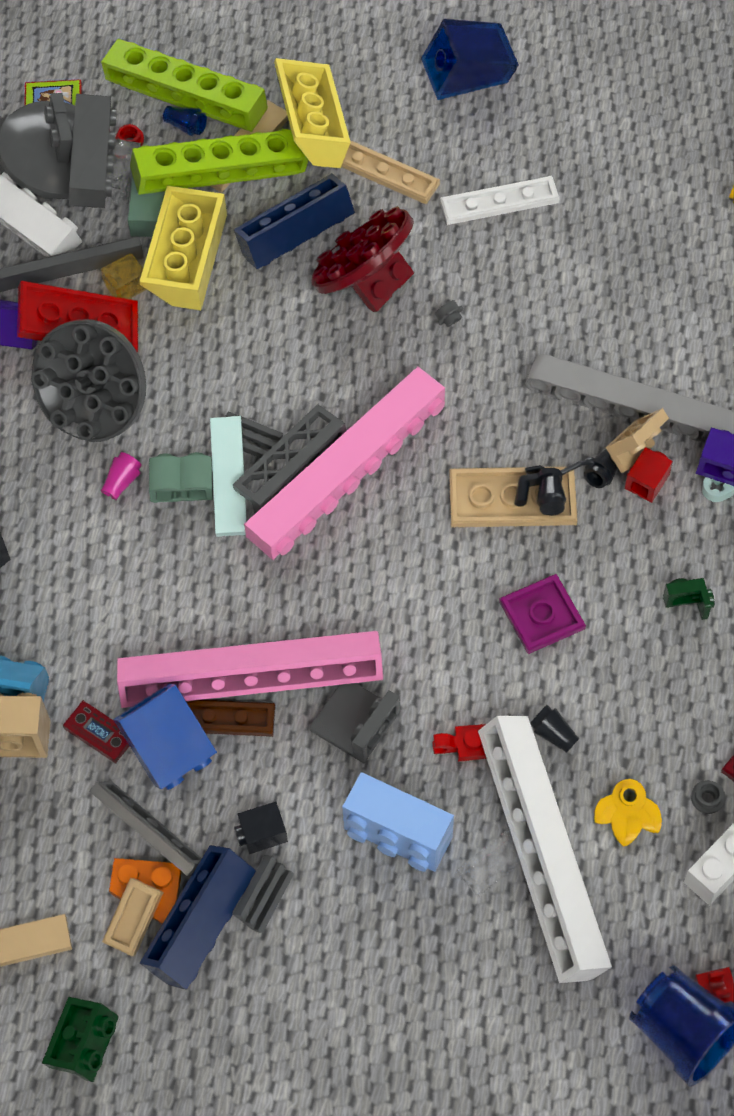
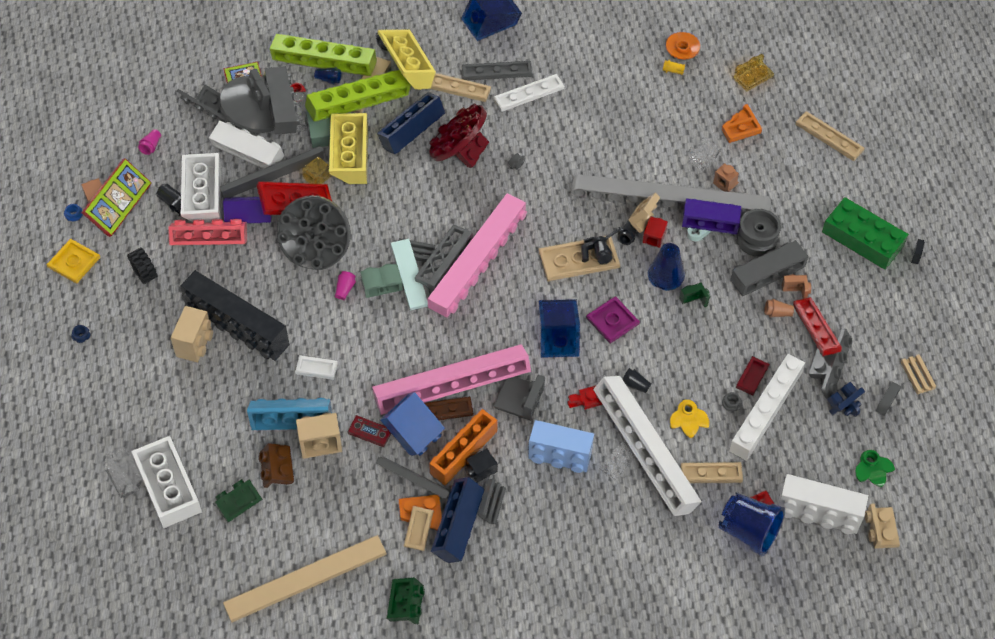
camera: 15 degrees left, 5 degrees down
(42, 606) = (316, 367): none -> white tile
(239, 790) = (462, 446): none -> orange brick
(447, 613) = (559, 328): none -> clear blue slope
(456, 154) = (497, 70): none -> dark grey tile
(645, 915) = (713, 472): none -> tan tile
(652, 543) = (667, 268): none -> clear blue cone

